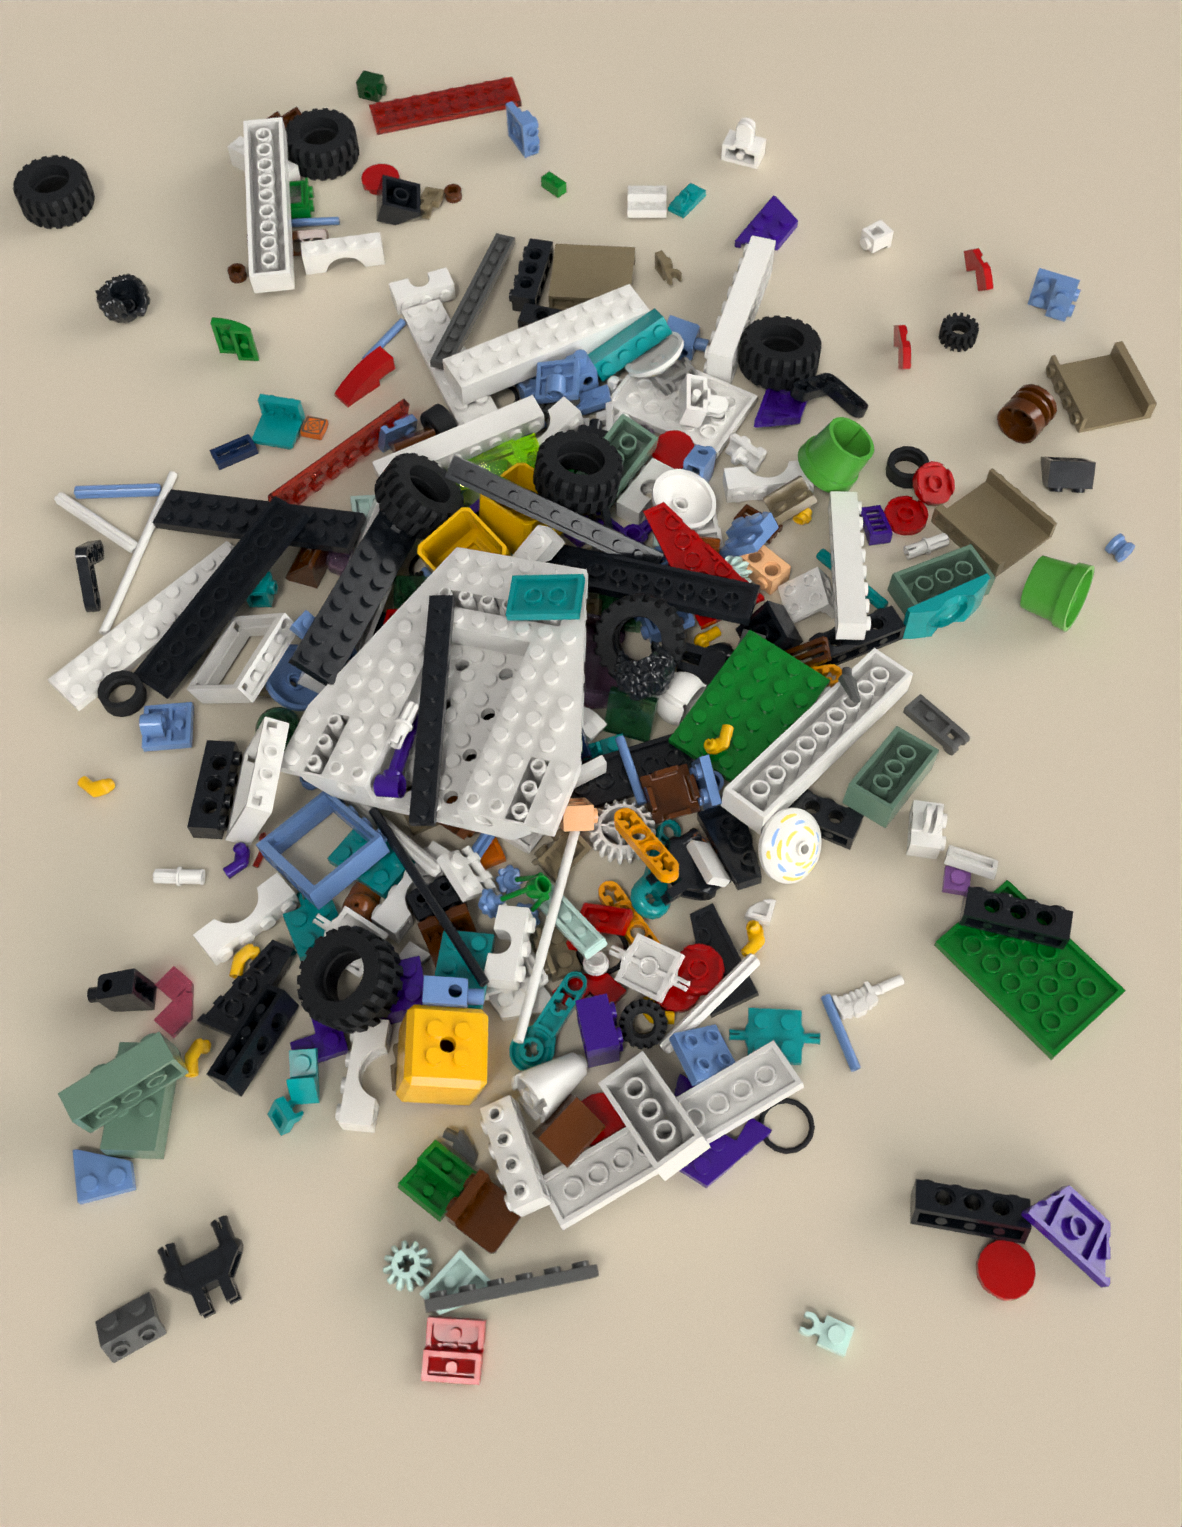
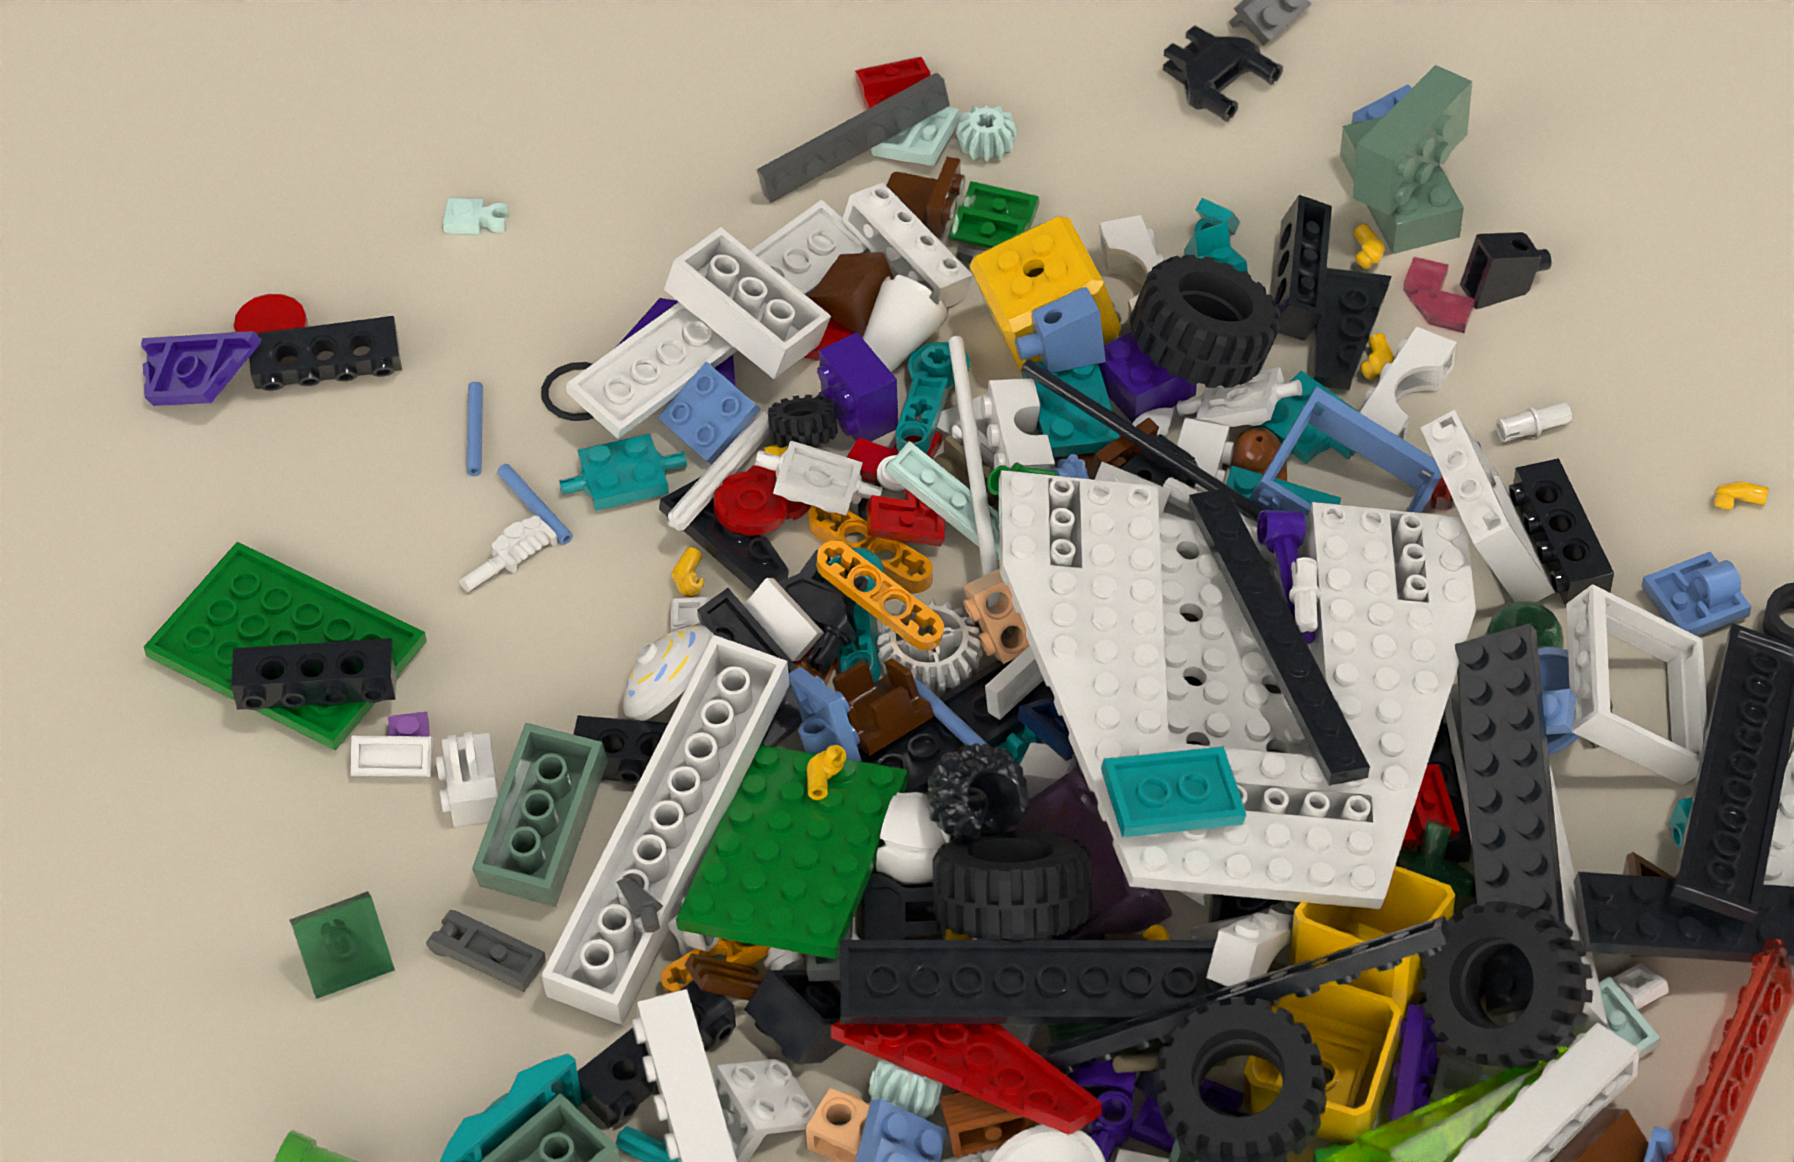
camera: 160 degrees right, 10 degrees down
(868, 1114) = (474, 428): none -> medium blue piece
(1021, 740) = (342, 944): none -> clear green tile

